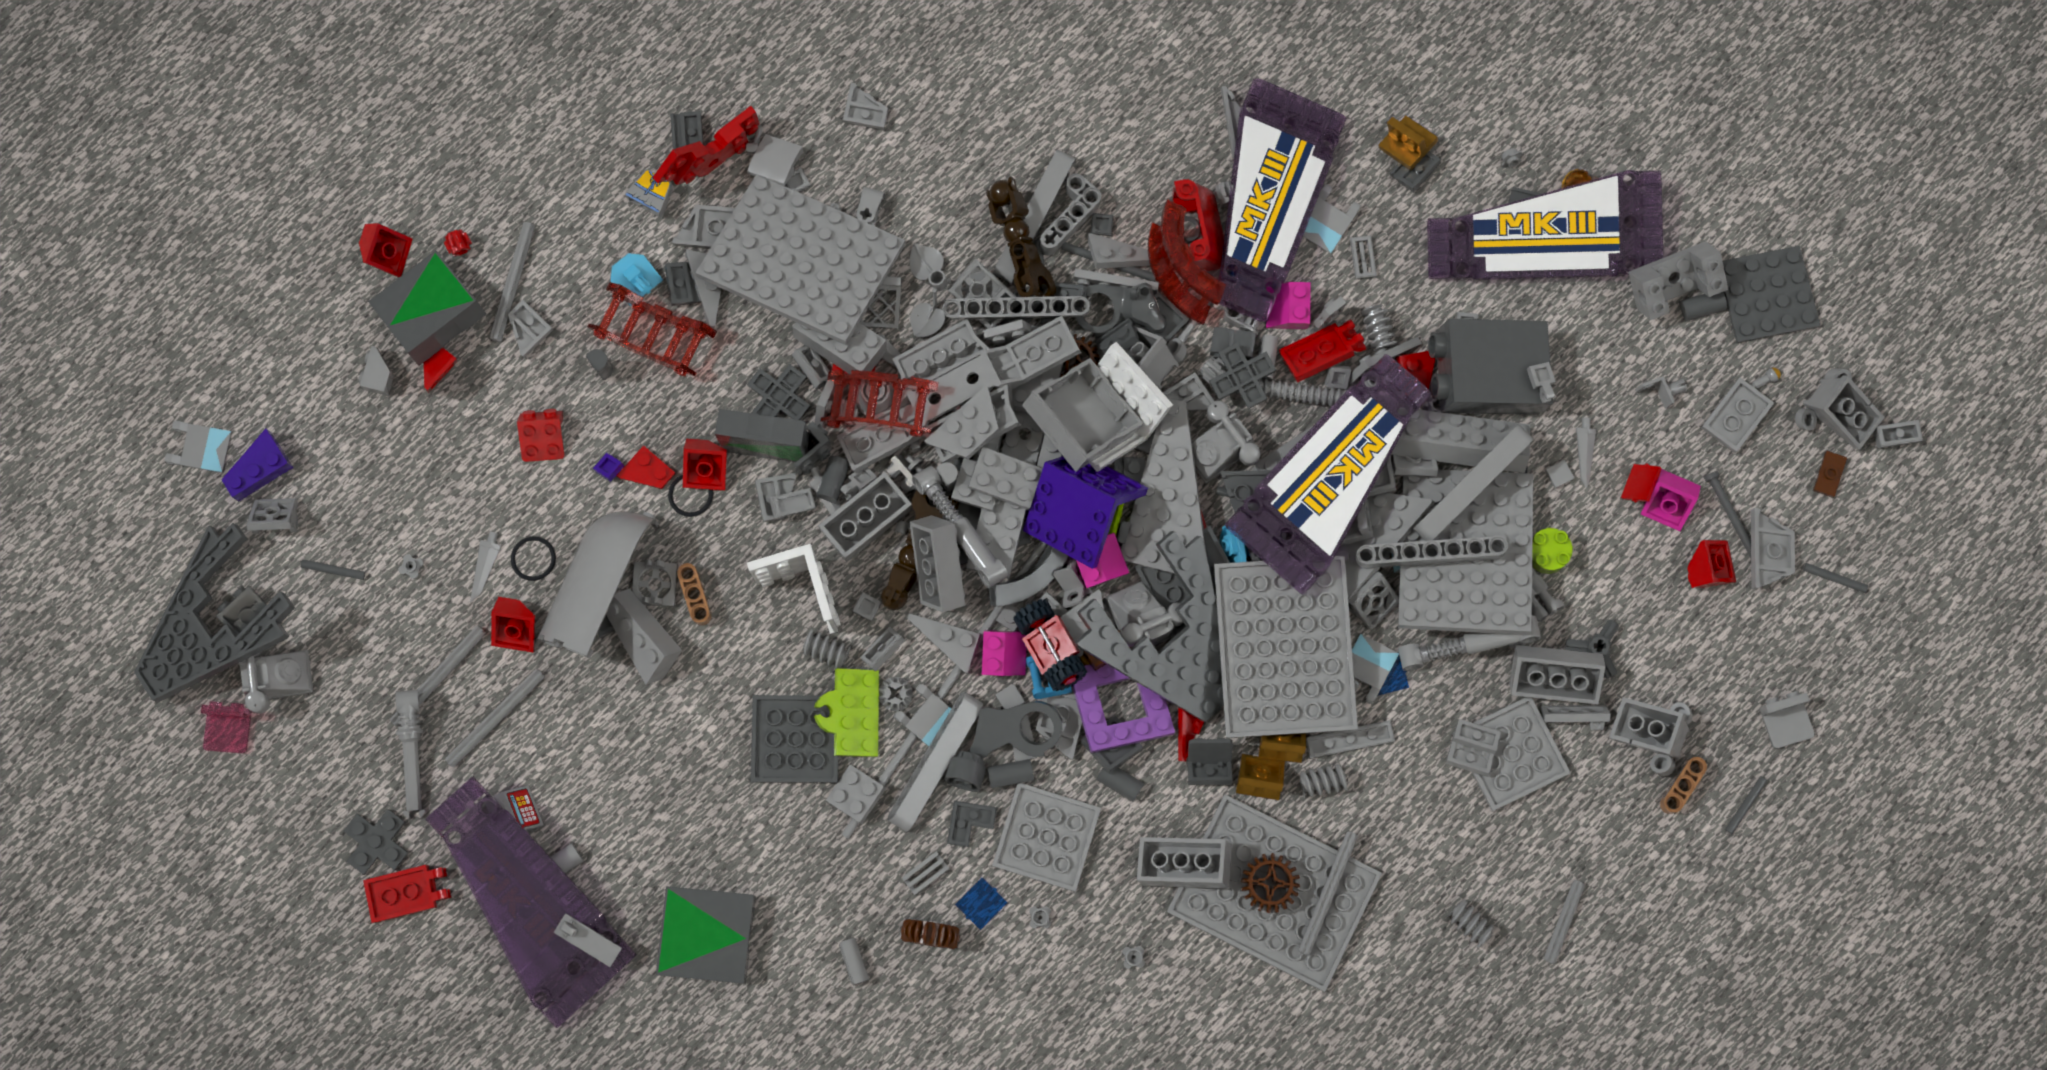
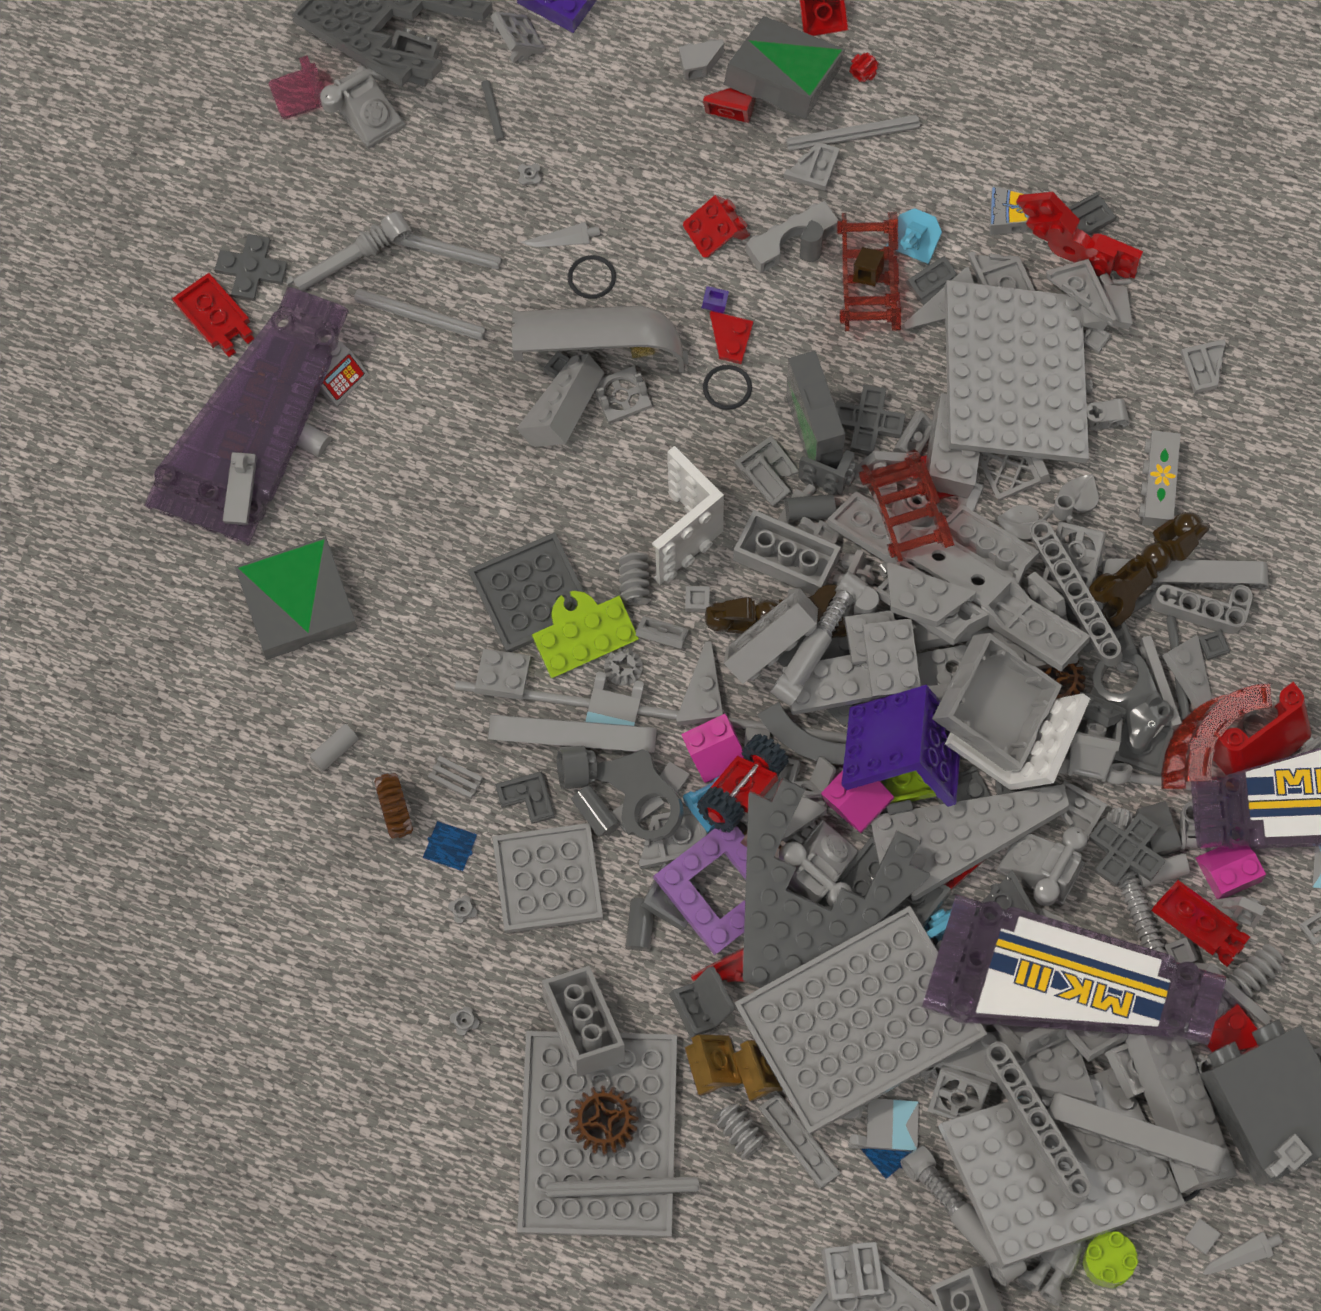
camera: 65 degrees right, 10 degrees down
(512, 625) = (515, 285): red slope -> none
(584, 404) = (765, 249): none -> light grey arch
(646, 328) = (868, 266): none -> dark brown brick
(694, 584) = (630, 424): medium nougat beam -> none
(704, 465) = (760, 381): red slope -> none
(751, 167) = (1083, 285): none -> light grey wing
(946, 193) = (1160, 478): none -> light grey brick

